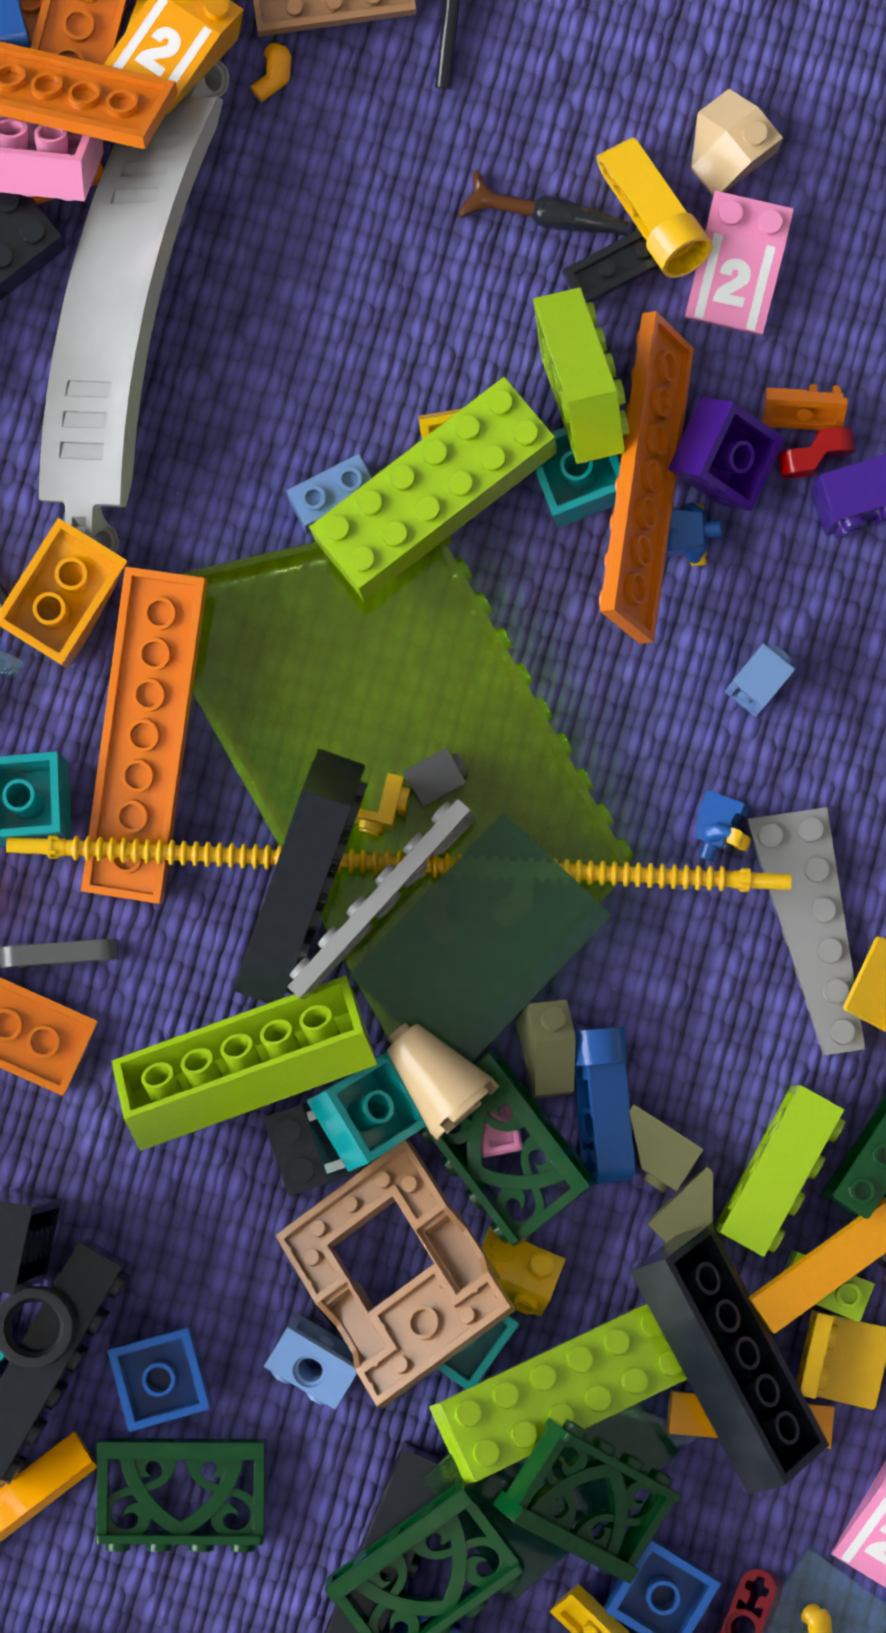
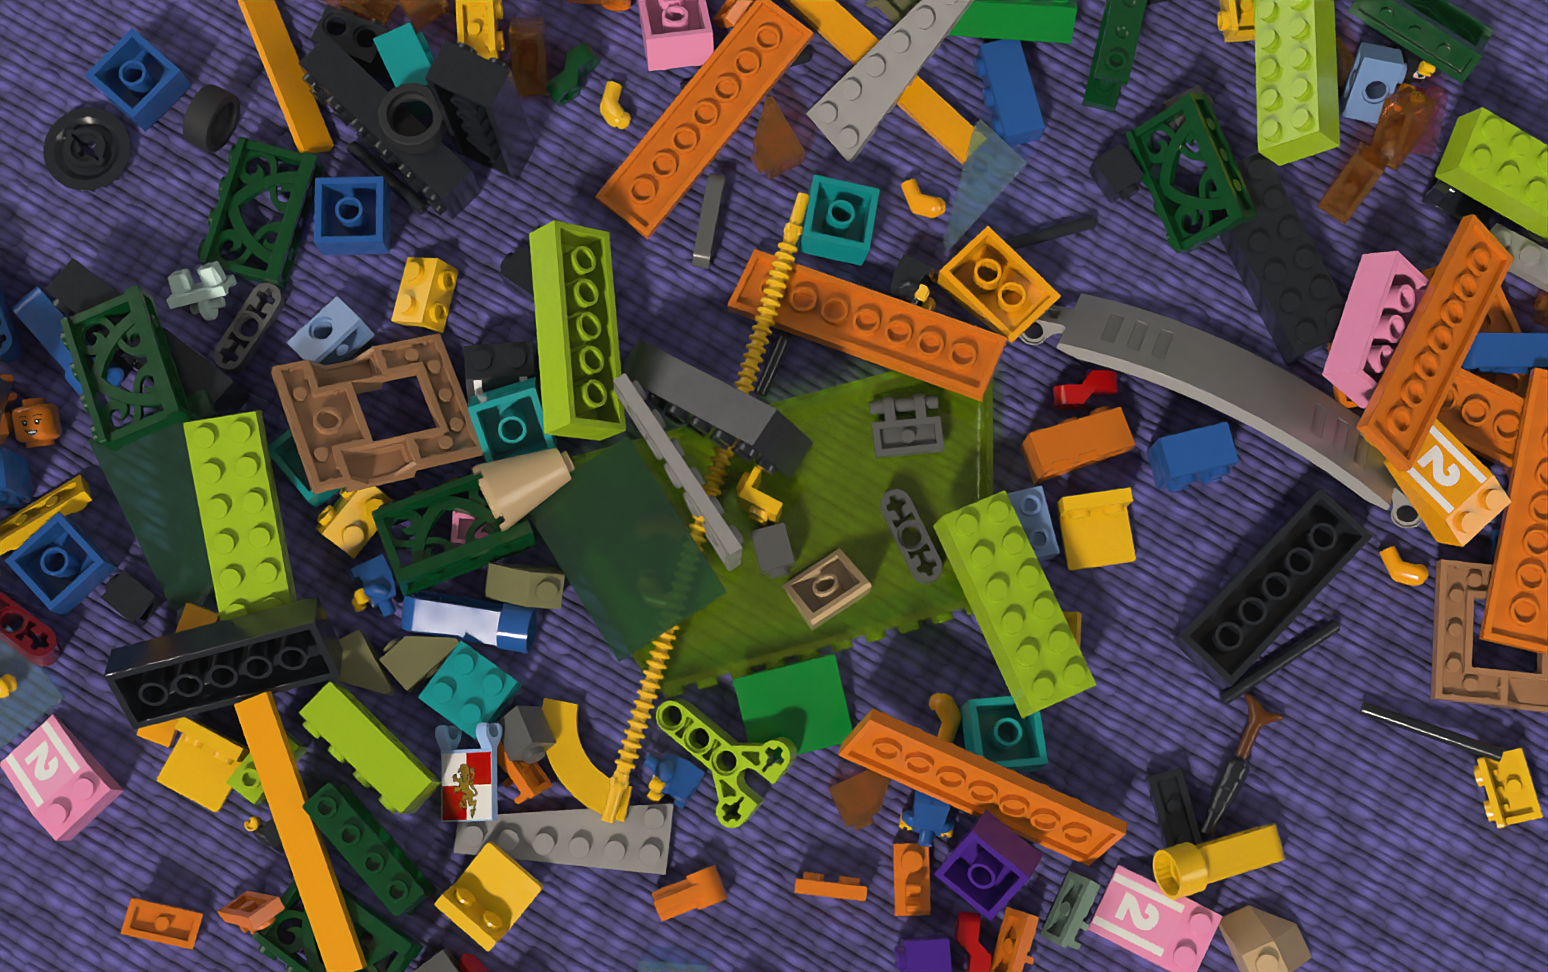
camera: 105 degrees right, 5 degrees down
(79, 697) = (912, 282): none -> black piece
(81, 1585) = (211, 118): none -> black tyre
(97, 1355) = (394, 183): none -> black bar
(164, 473) = (1074, 395): none -> red piece
(179, 1157) = (517, 272): none -> black brick
(206, 325) = (1192, 456): none -> blue brick
(213, 835) = (773, 363): none -> black bar
(223, 464) = (1076, 443): none -> orange wedge
(231, 1267) = (425, 293): none -> yellow bracket
(263, 658) = (906, 436): none -> dark grey plate
(300, 1533) = (203, 294): none -> light aqua hips
(318, 420) = (1096, 529): none -> yellow bracket
(337, 211) = (1271, 588): none -> black brick
(350, 1485) = (253, 342): none -> dark grey beam
(408, 615) = (909, 509): none -> dark grey beam
(414, 187) = (1279, 662): none -> black bar
(463, 706) = (827, 588): none -> tan slope
(569, 537) = (948, 714): none -> light orange arm
(581, 375) = (1083, 751): lime brick -> none
(591, 1222) = (376, 586): none -> blue piece
(608, 711) = (795, 702): none -> green piece
(610, 1548) = (175, 525): dark green fence -> none
(683, 1079) = (469, 689): none -> teal brick
(683, 1514) = (132, 598): none -> black brick
(689, 614) = (859, 798): none -> clear orange slope
(707, 761) = (728, 782): none -> lime beam
(716, 1002) = (526, 734): none -> dark grey brick
(730, 945) = (573, 765): none -> yellow tile
(749, 356) = (1069, 911): none -> sand green plate
(750, 1000) = (527, 777): none -> orange plate
(760, 537) = (911, 879): none -> orange plate
(760, 678) = (787, 844): medium blue brick -> none
(779, 1053) = (469, 774): none -> flag
(791, 605) = (845, 888): none -> orange plate
(835, 766) = (696, 891): none -> orange piece

